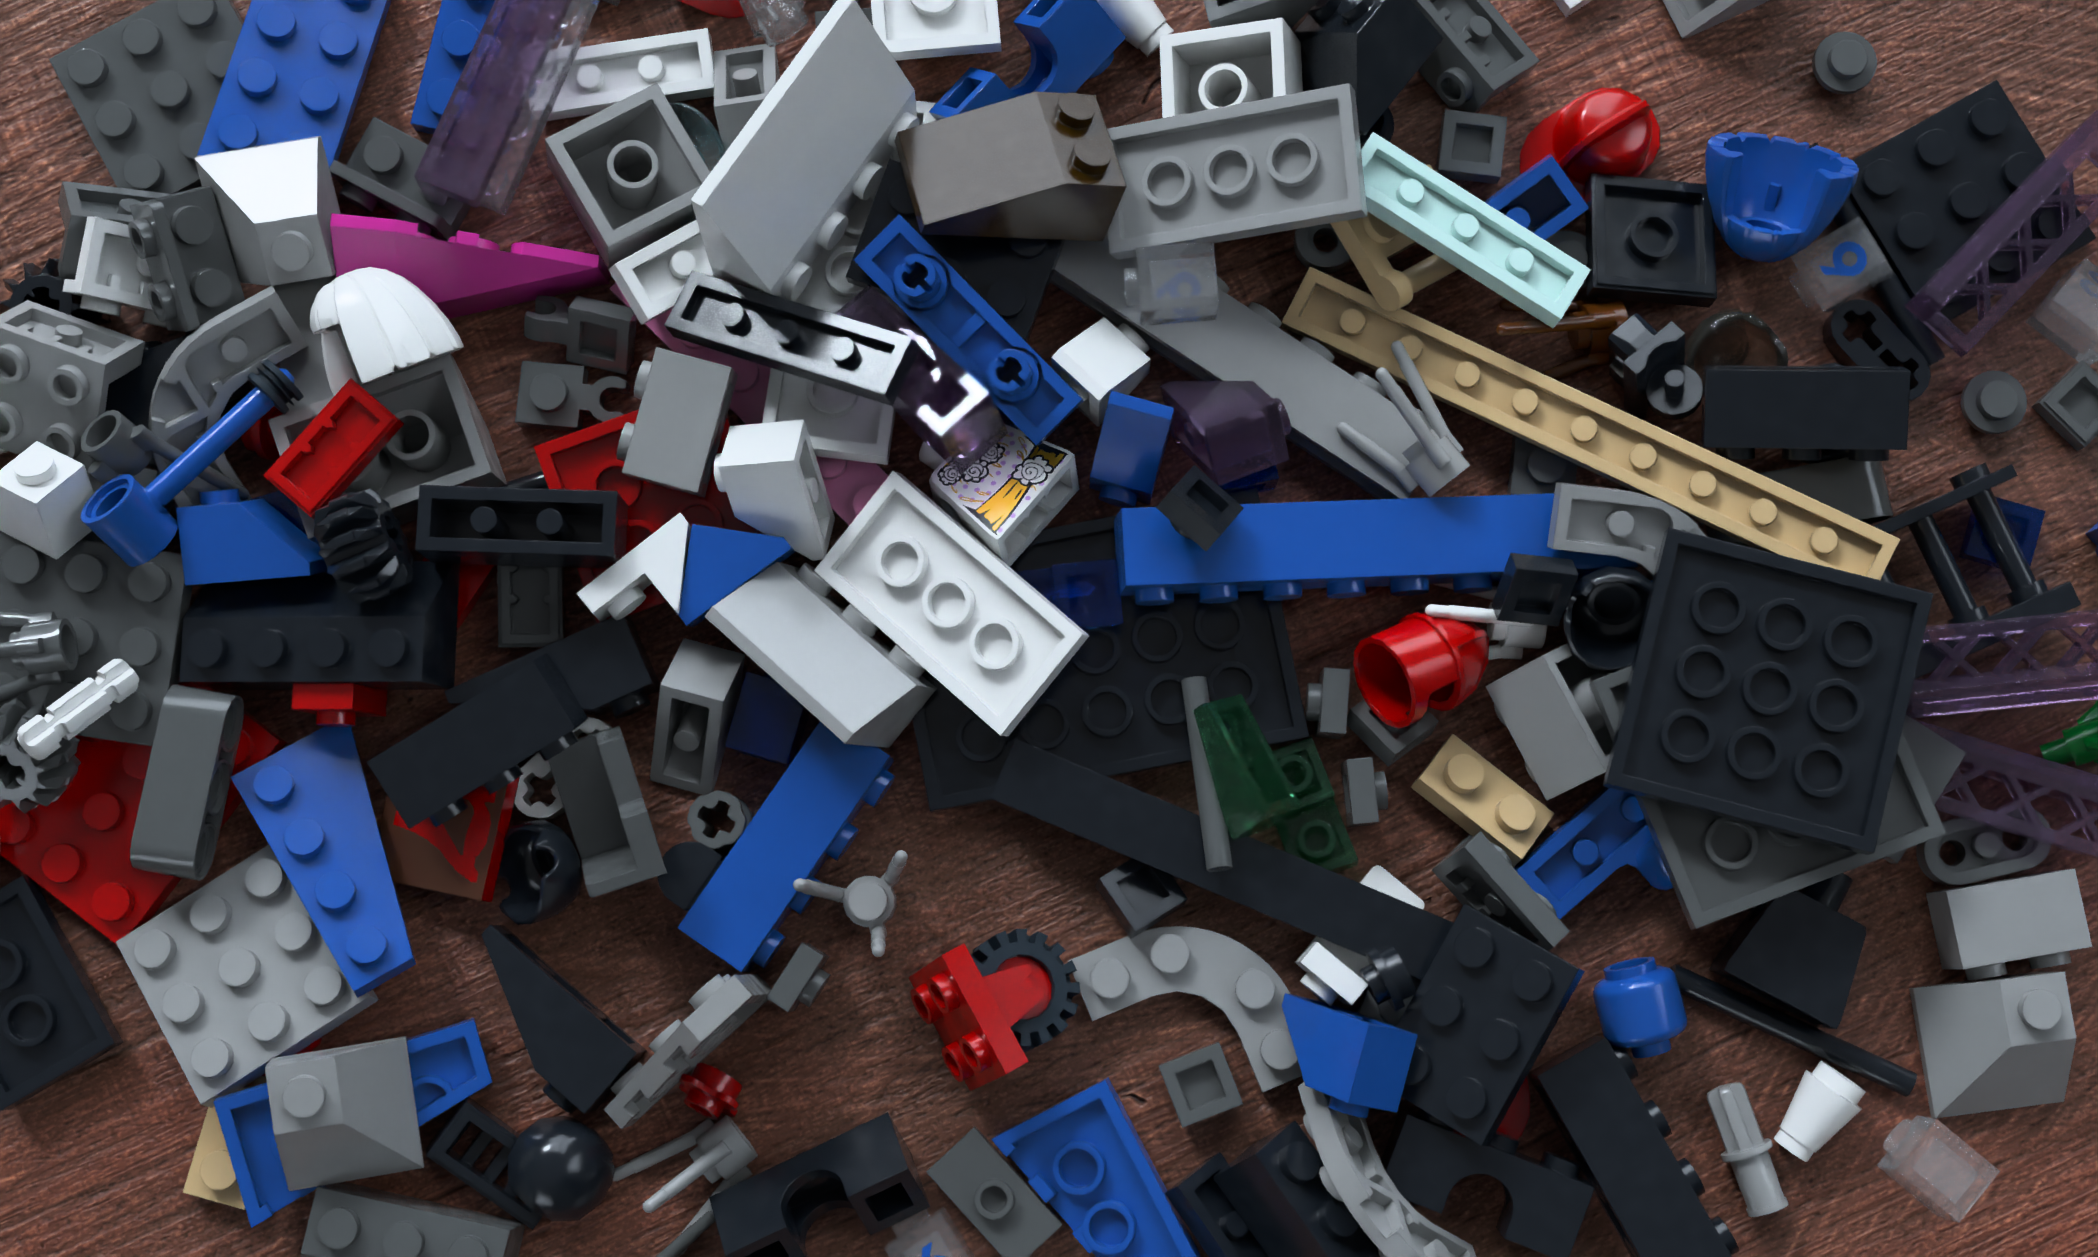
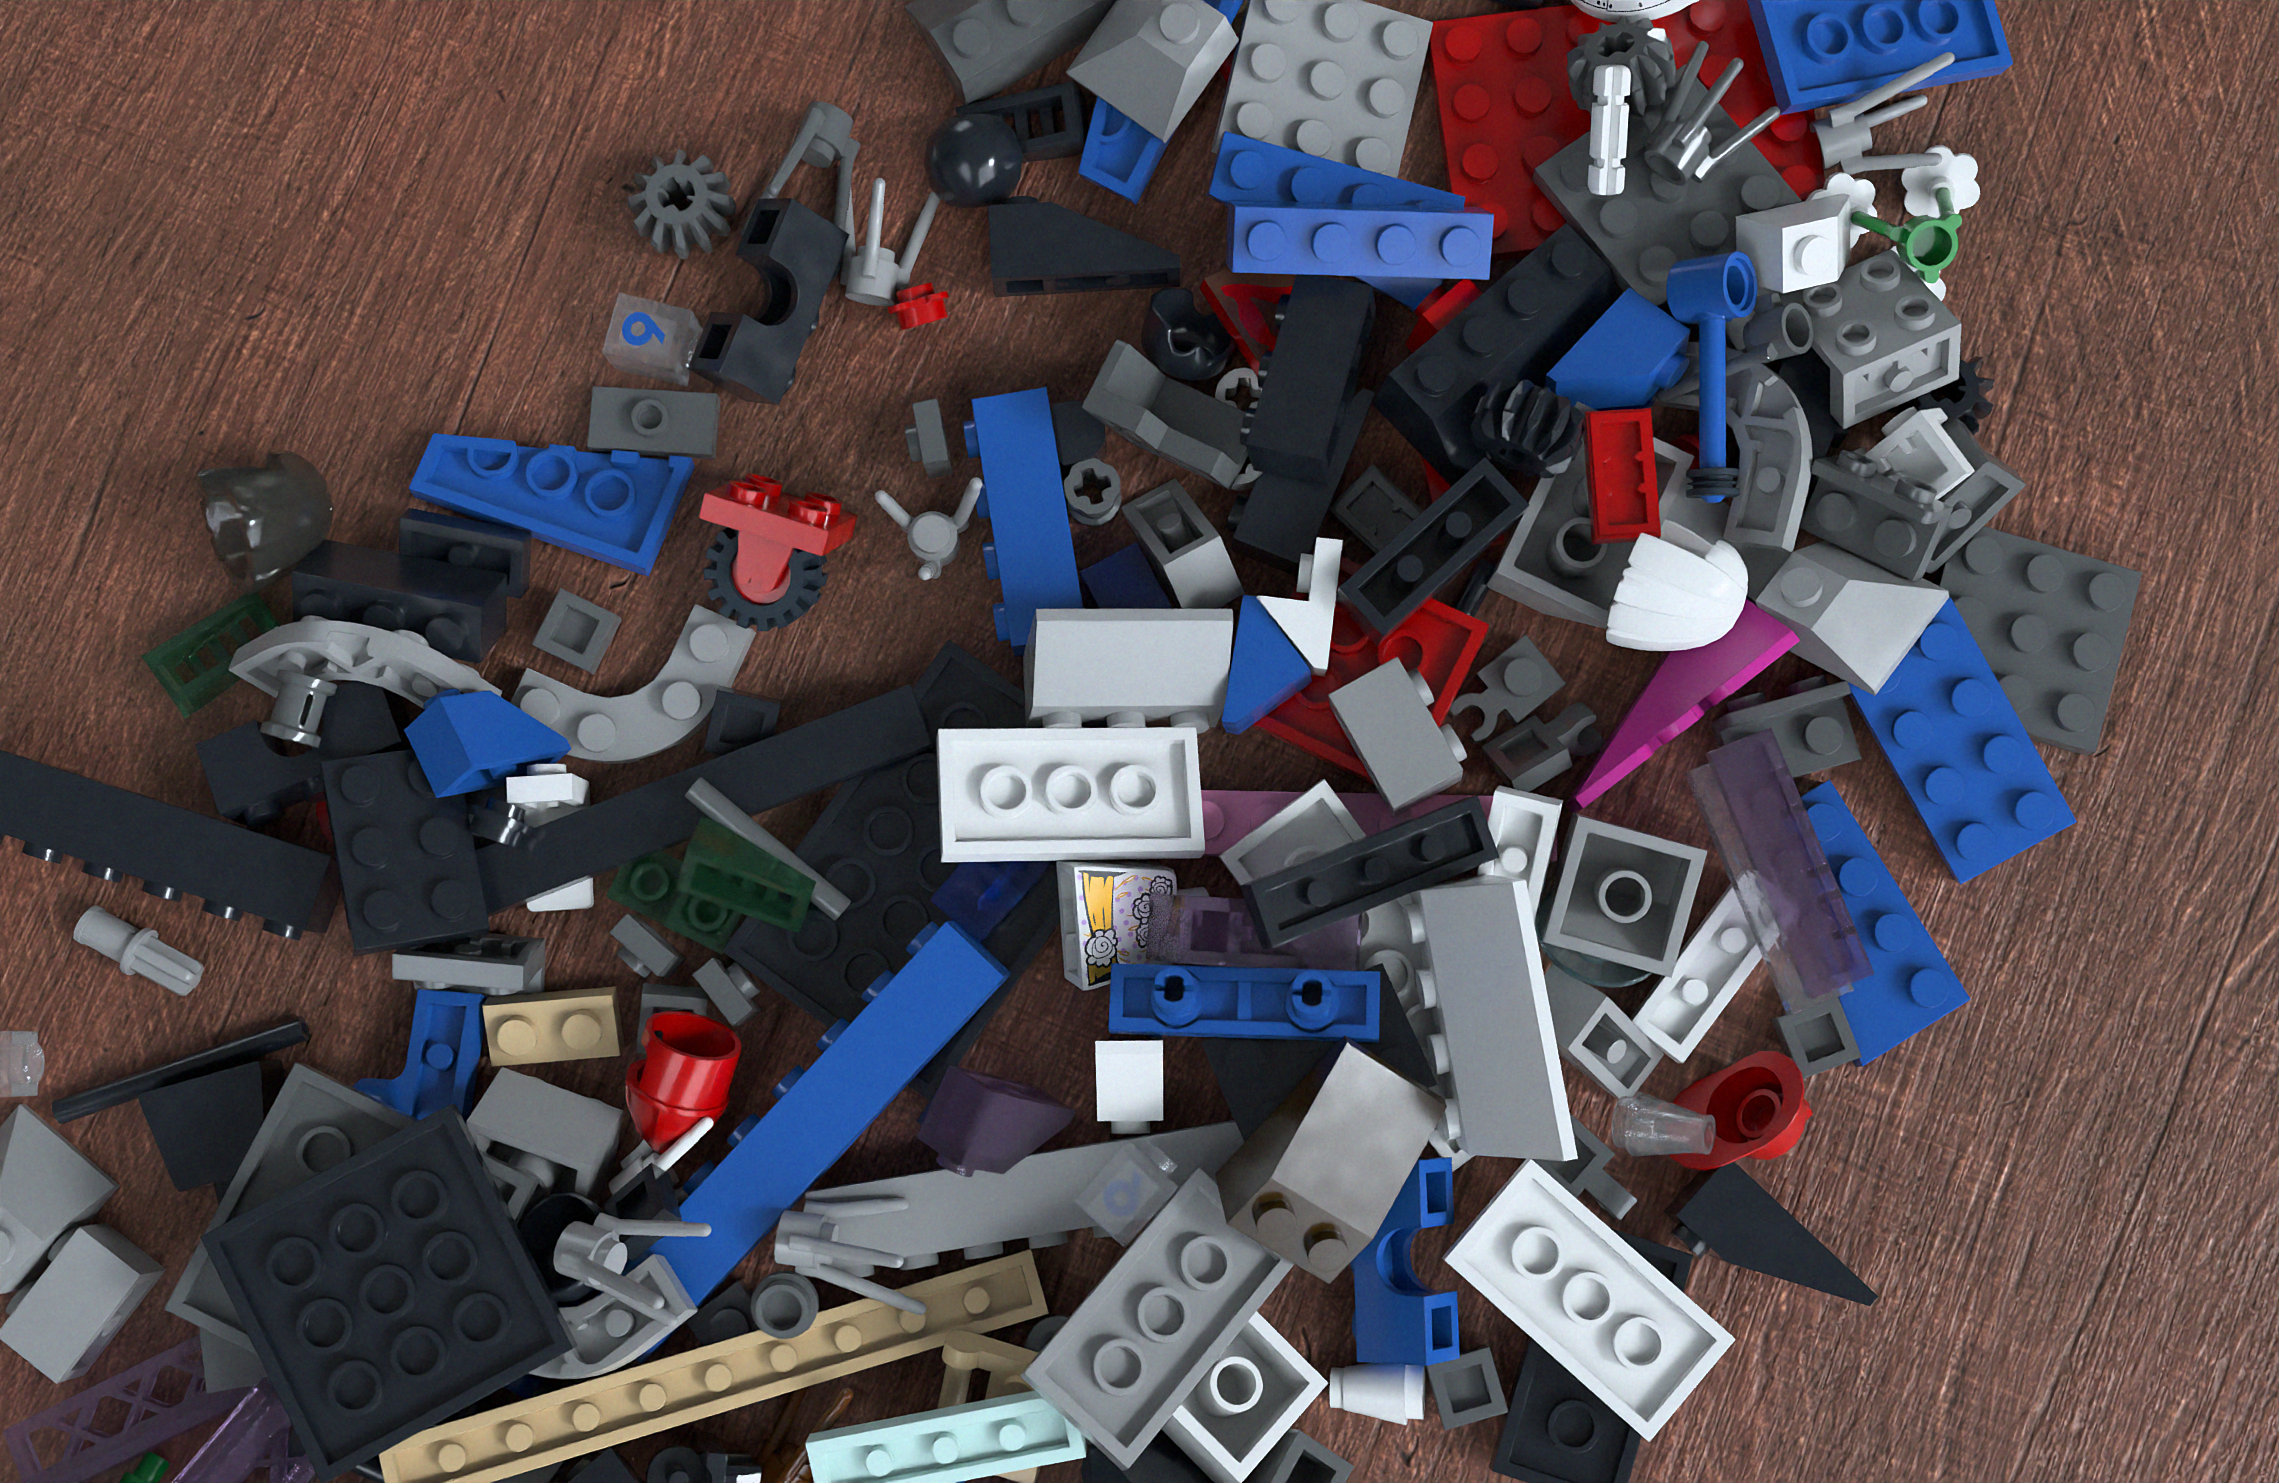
camera: 135 degrees right, 0 degrees up
(187, 782) = (1490, 162): dark grey beam -> none
(341, 809) = (1359, 239): none -> brick
(719, 1010) = (958, 320): light grey plate -> none
(777, 484) = (1280, 760): white slope -> none
(1130, 450) = (1046, 1035): blue slope -> none
(1199, 508) = (940, 1028): black plate -> none
(1463, 1208) = (298, 708): none -> dark grey bush
(1490, 434) = (784, 1304): none -> dark grey plate
(1594, 577) = (599, 1258): none -> light grey plant
(1640, 1006) = (302, 980): blue head -> none
(1818, 1110) = (108, 1028): white cone -> none
(1979, 852) = (141, 1336): dark grey plate -> none

